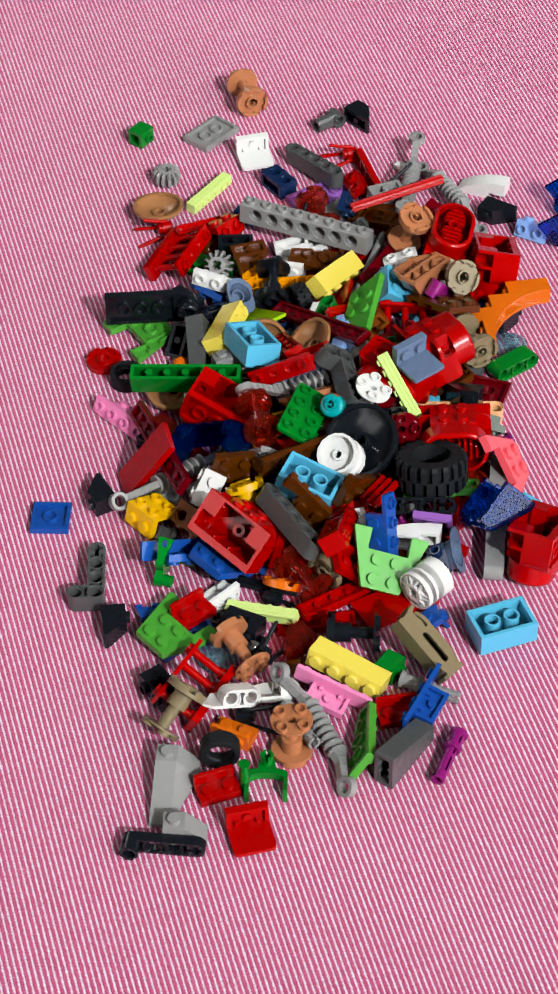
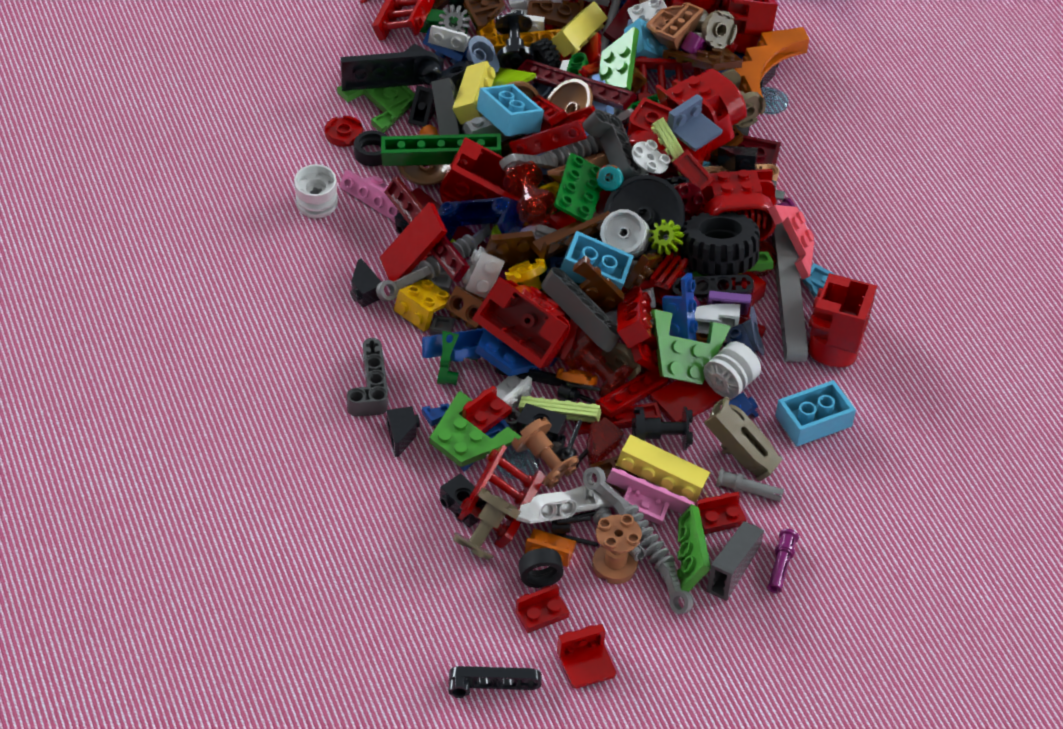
camera: 10 degrees left, 5 degrees up
(51, 517) = (314, 311): blue tile -> none
(67, 412) = (316, 191): none -> white wheel
(171, 780) = (494, 608): light grey wedge -> none
(184, 824) = (514, 656): light grey slope -> none
(265, 770) = (590, 587): green piece -> none
(370, 461) = (665, 245): none -> lime gear
(392, 662) = (709, 460): green brick -> none
(412, 401) = (692, 169): none -> red tile
(428, 702) = (754, 503): blue bracket -> none
(494, 506) = (793, 285): clear blue windscreen -> none
(512, 363) = (778, 121): green beam -> none

